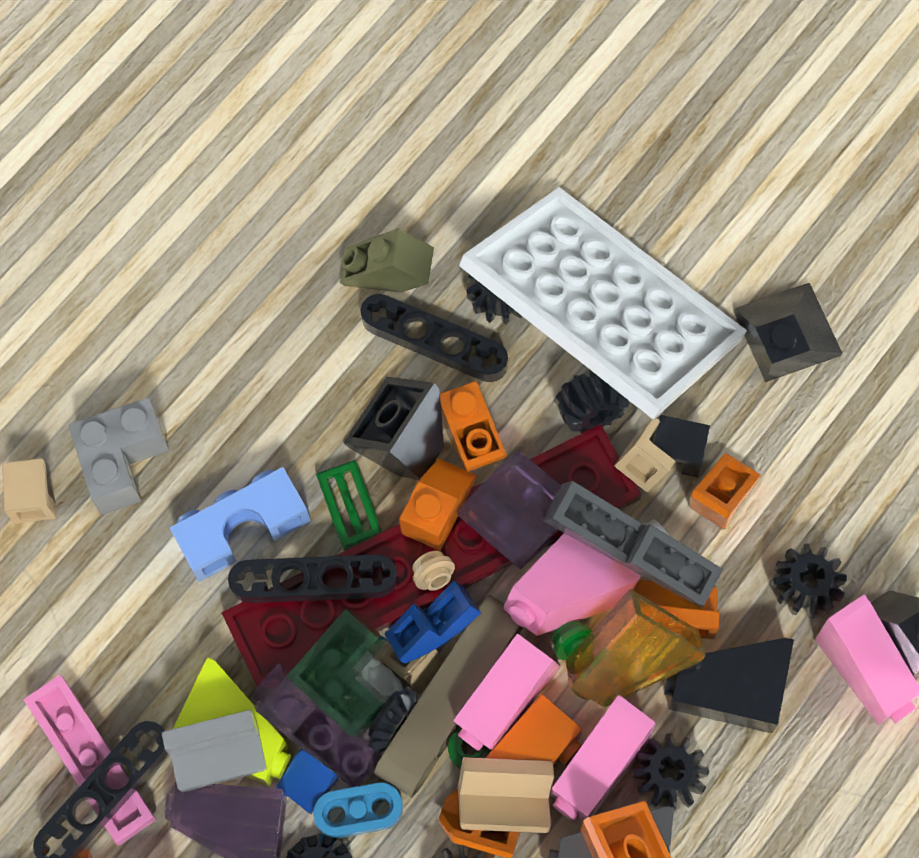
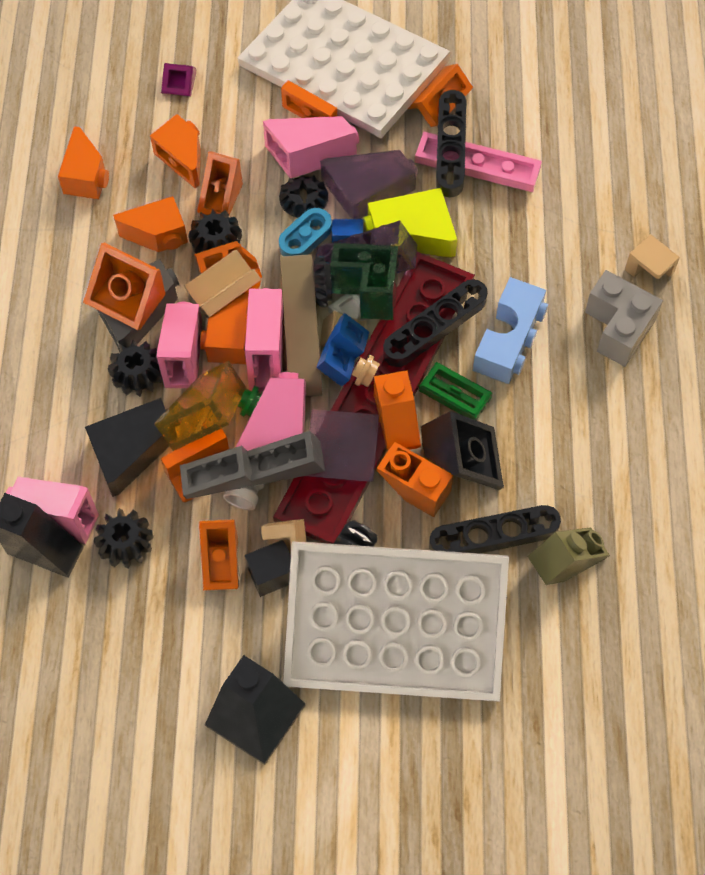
camera: 140 degrees right, 5 degrees down
(215, 750) = (407, 193): light grey panel -> none

